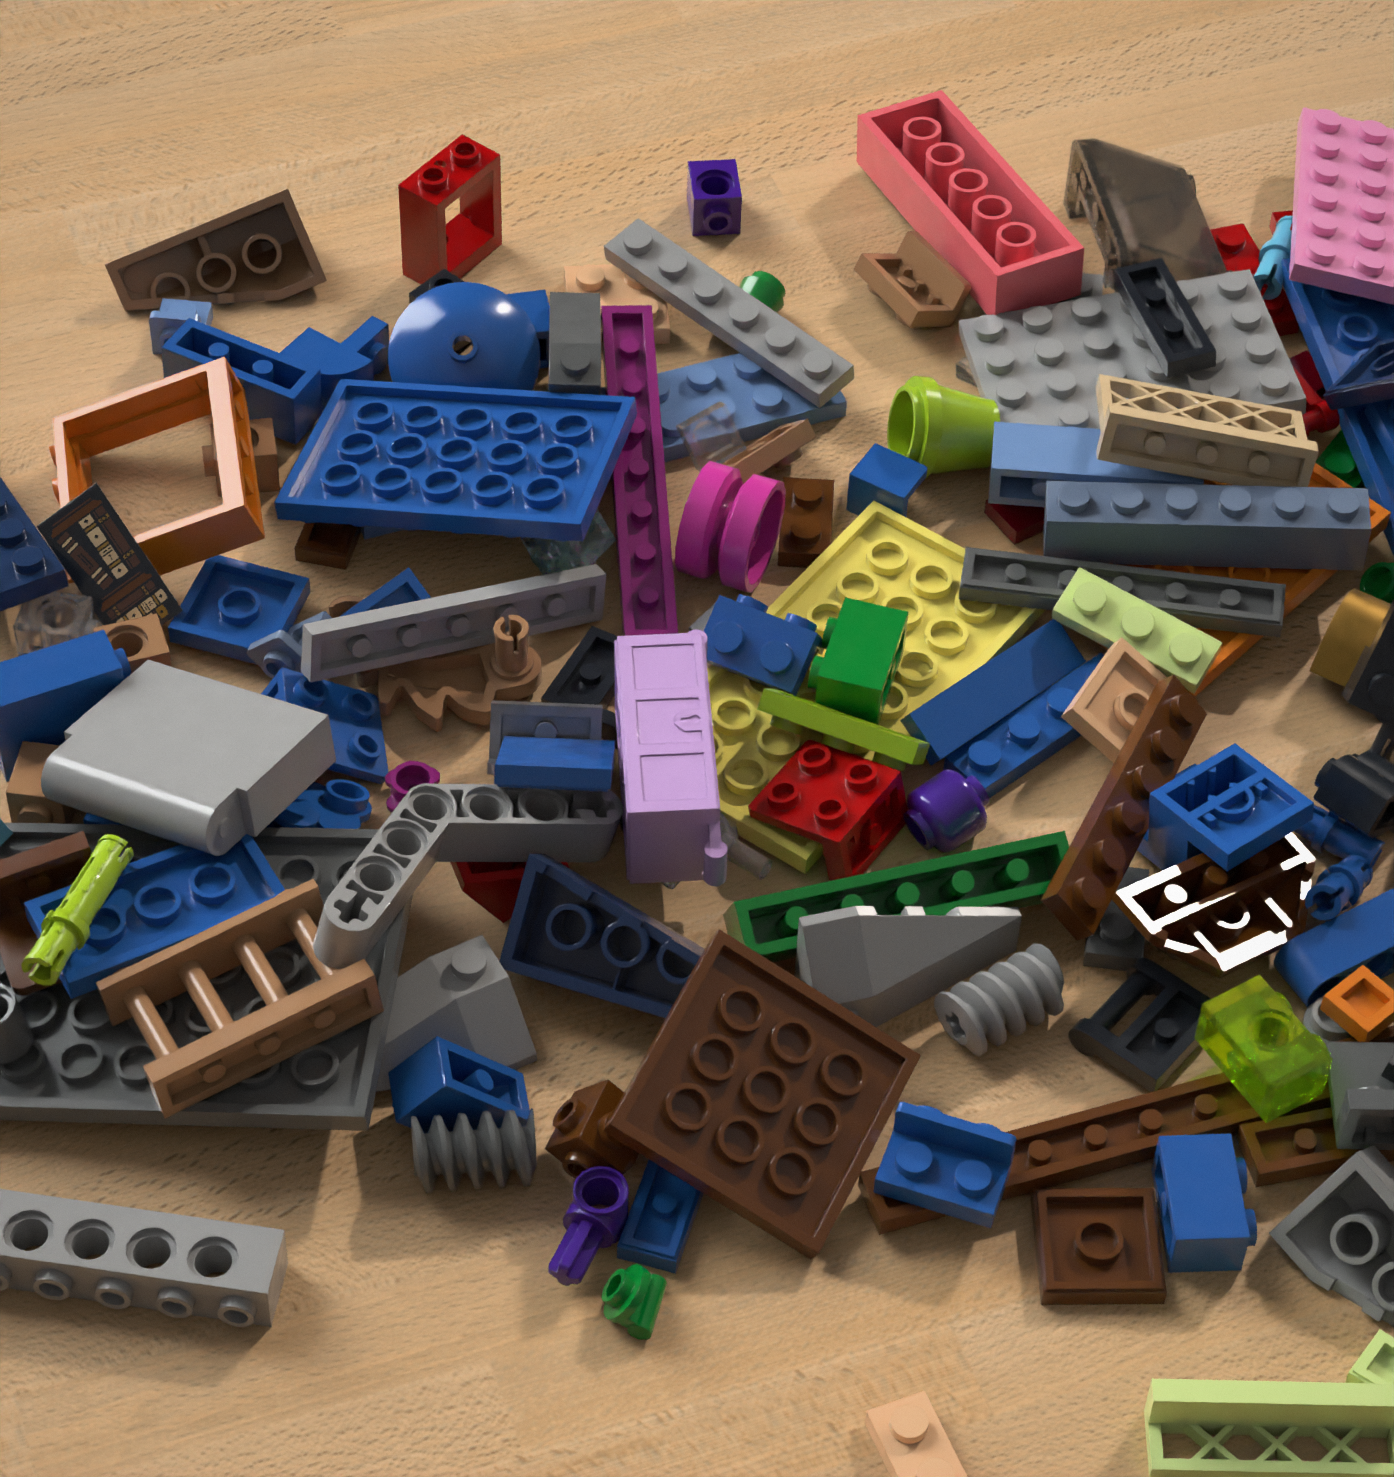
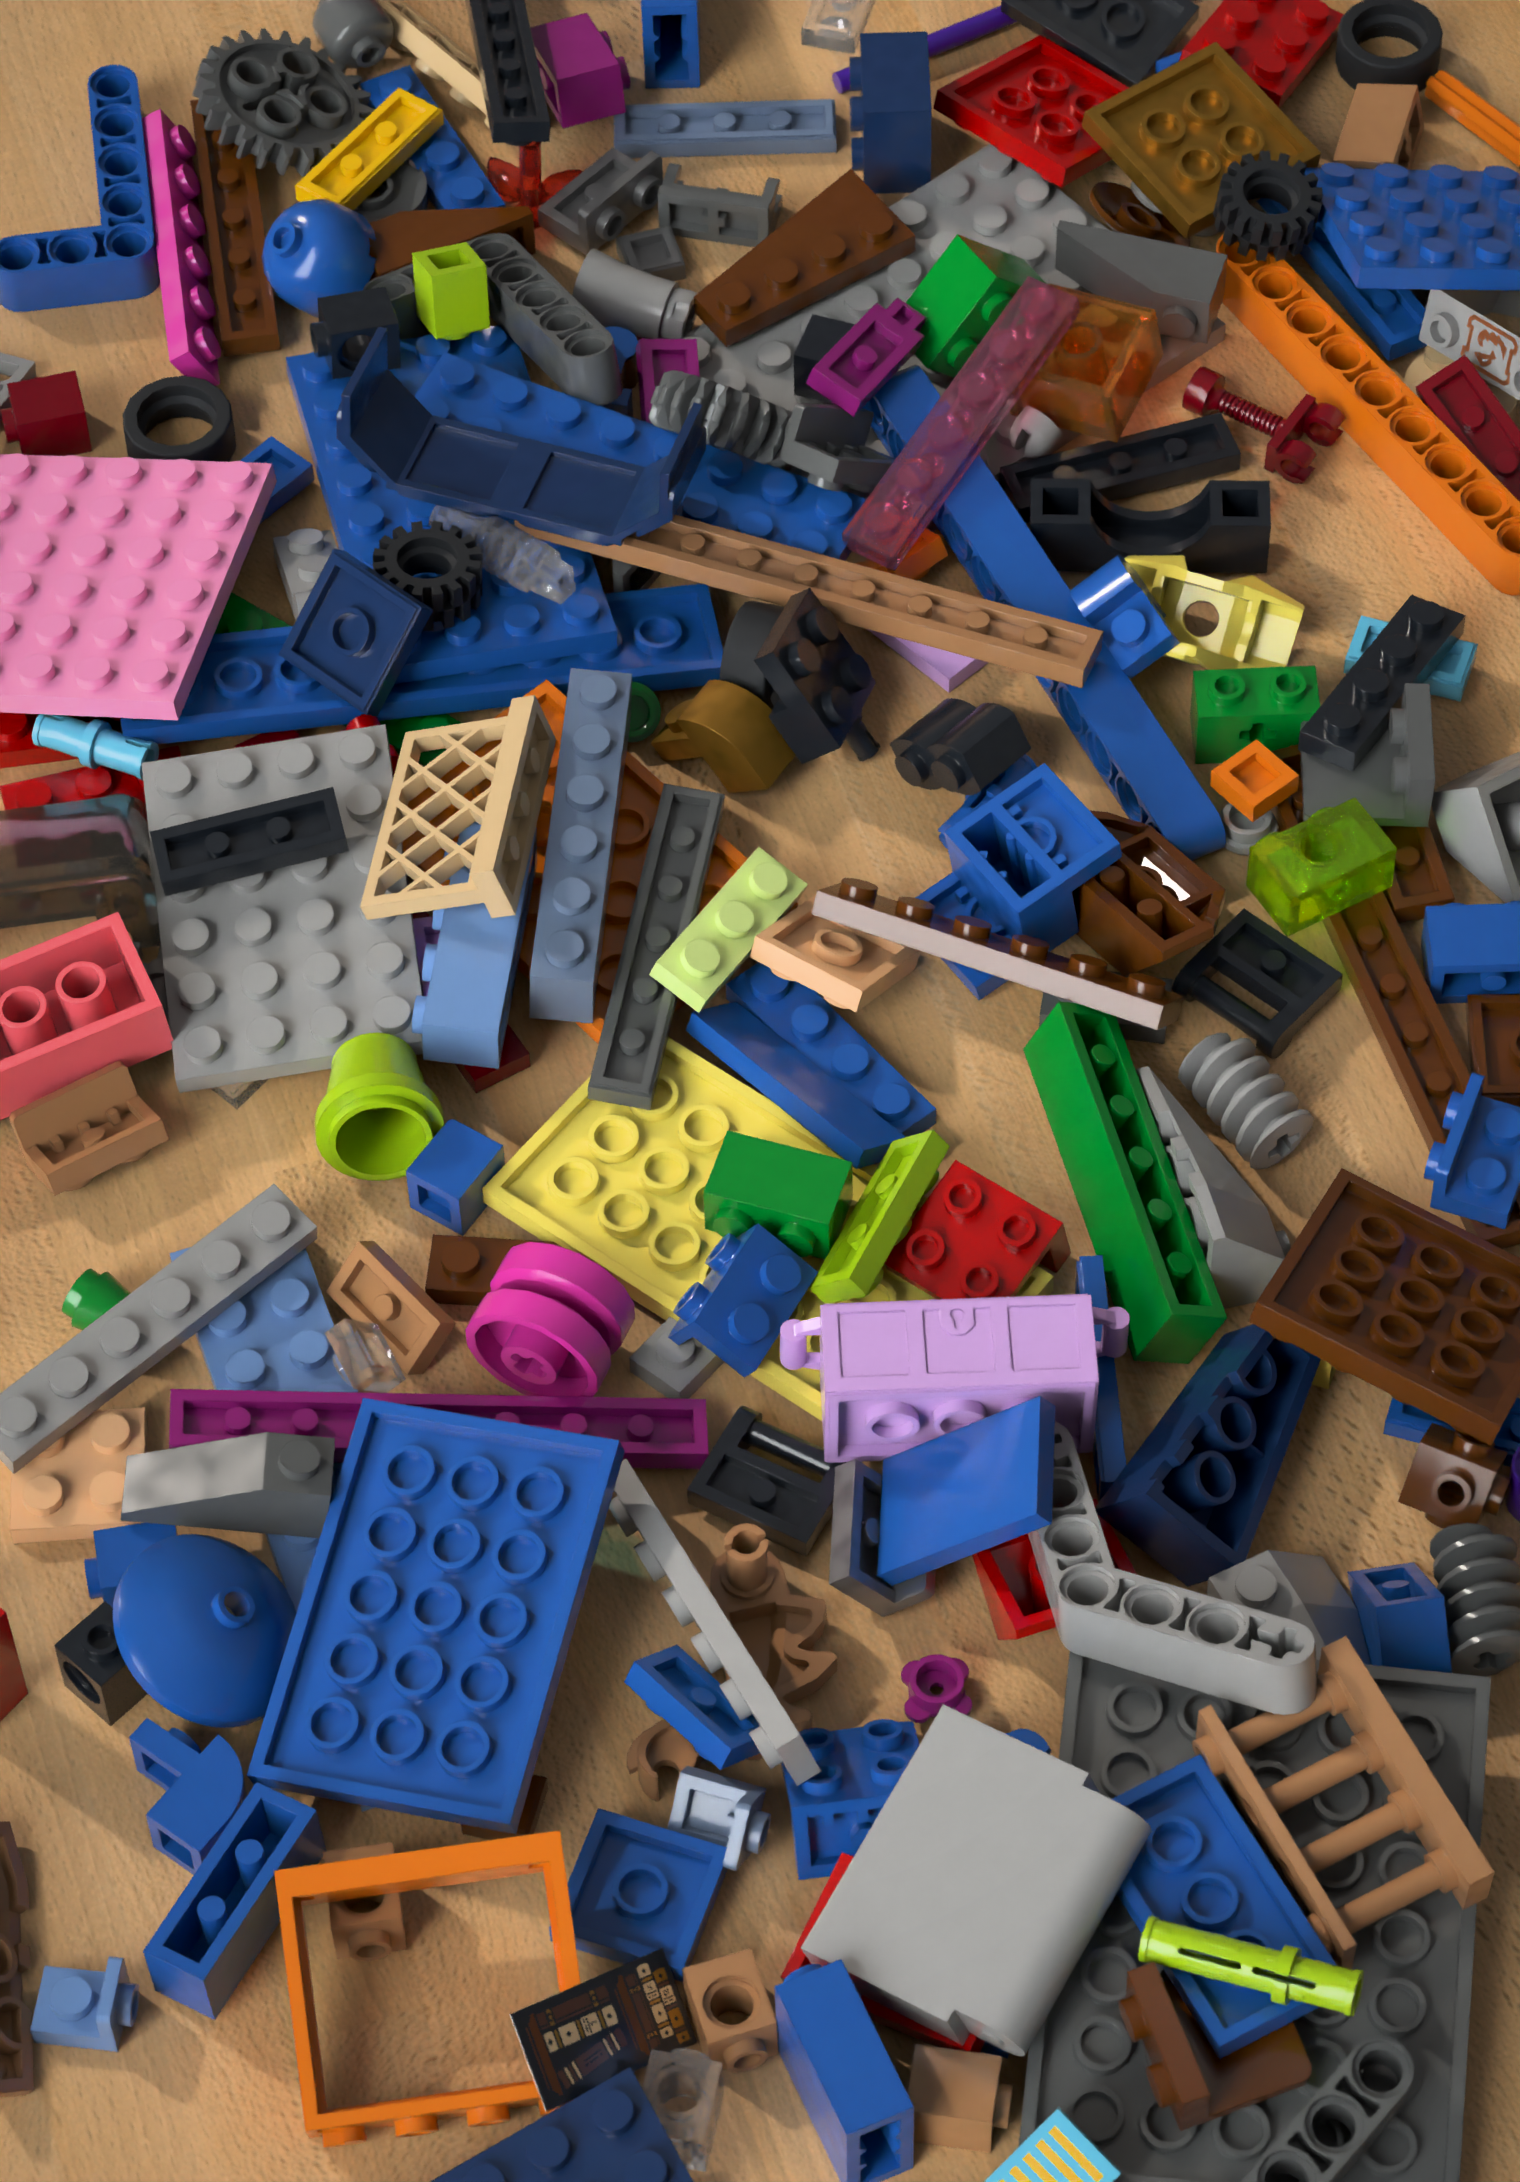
camera: 85 degrees left, 5 degrees up
(686, 896) = (1108, 1435): none -> blue tile
(946, 811) = (978, 1135): dark purple head -> none
(1339, 887) = (1105, 790): blue pin -> none

